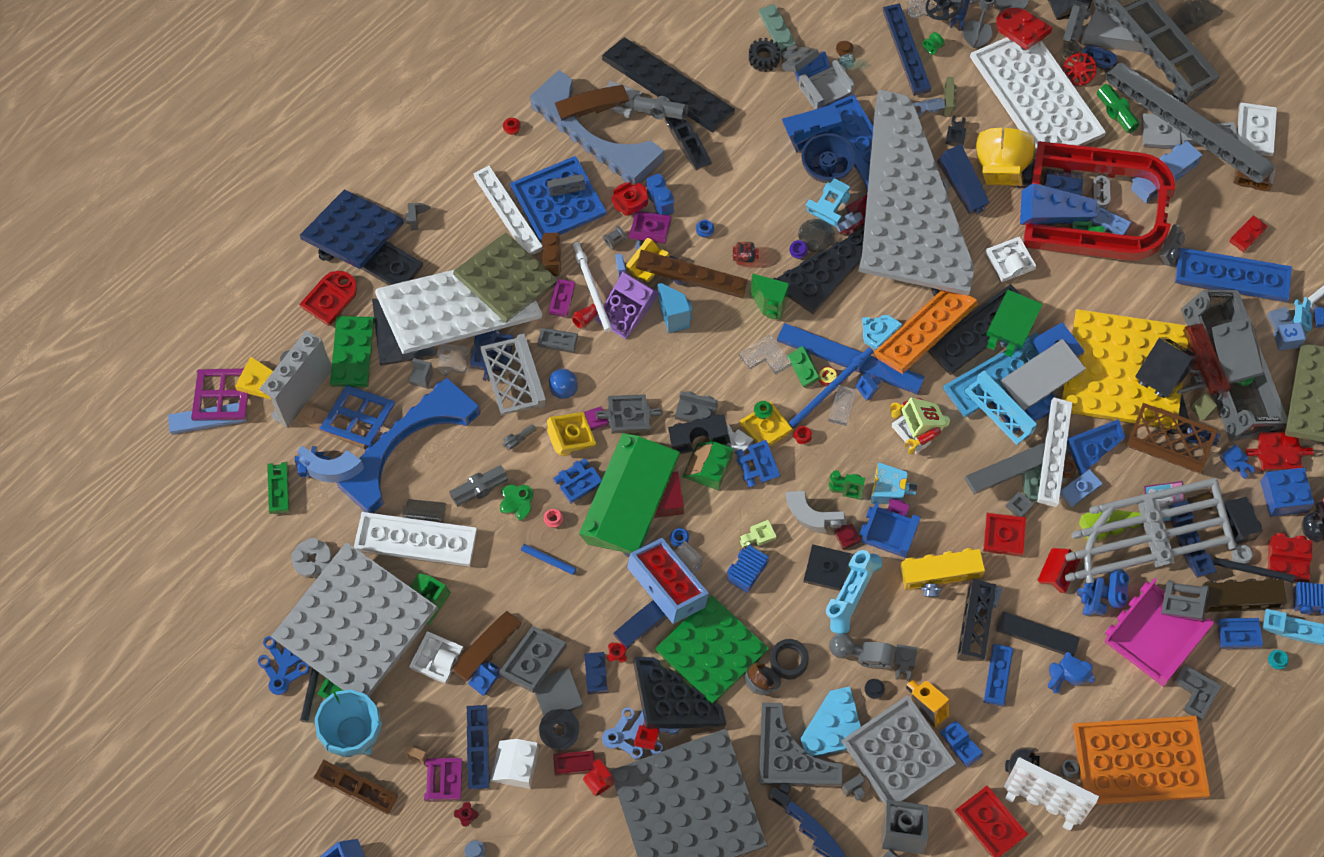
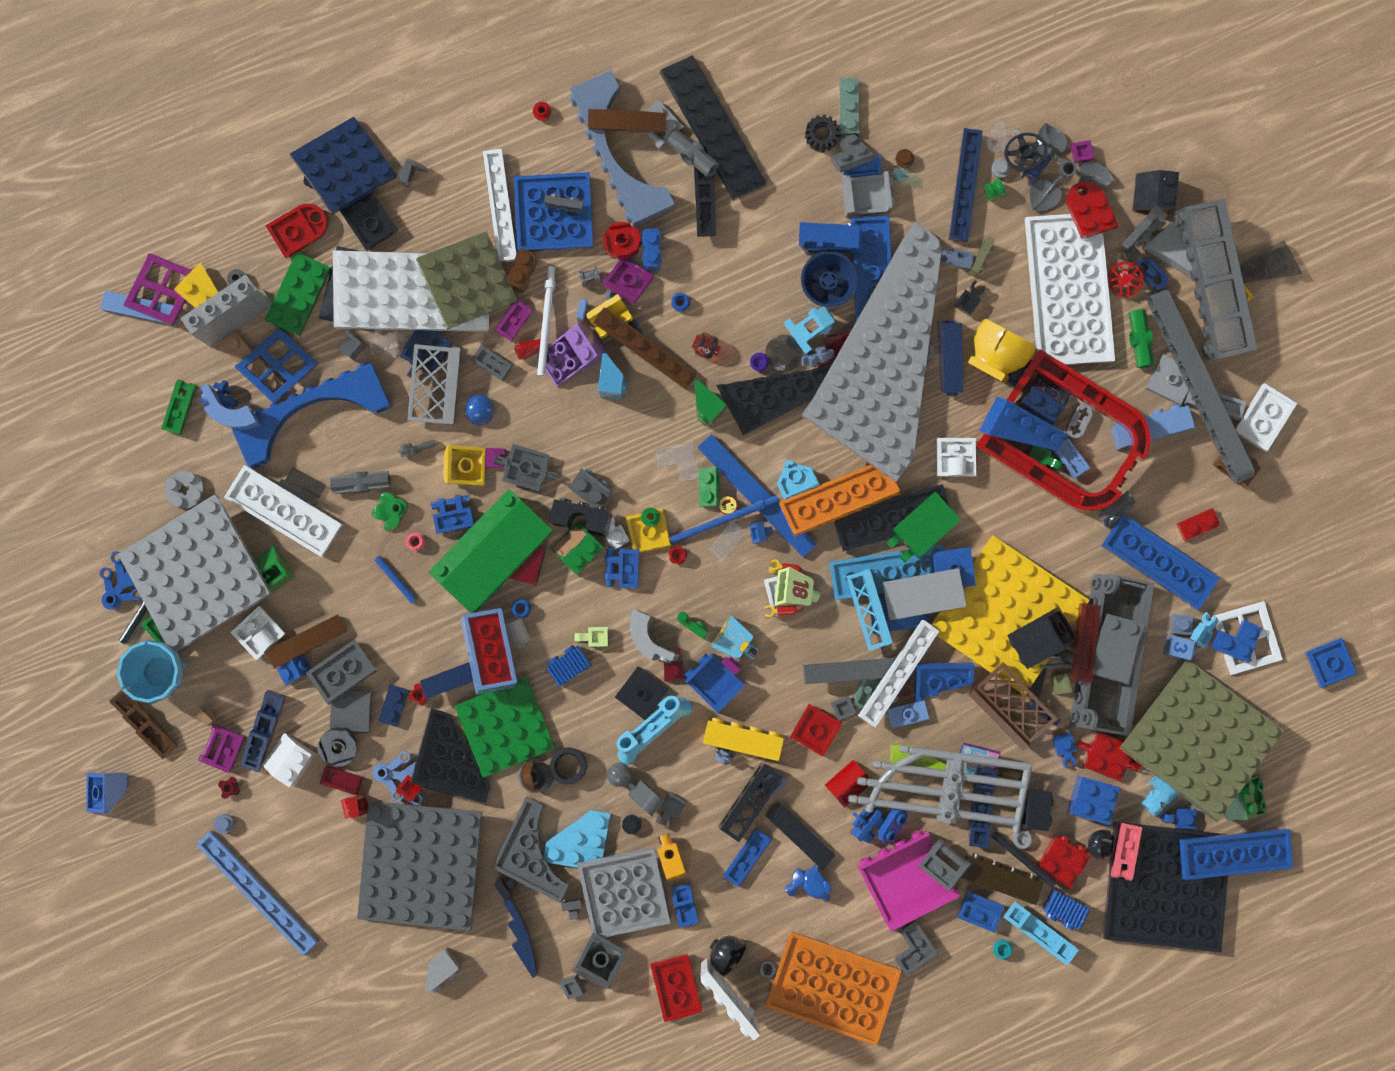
camera: 20 degrees right, 20 degrees up
(929, 26) = (1000, 168): none -> light grey plate

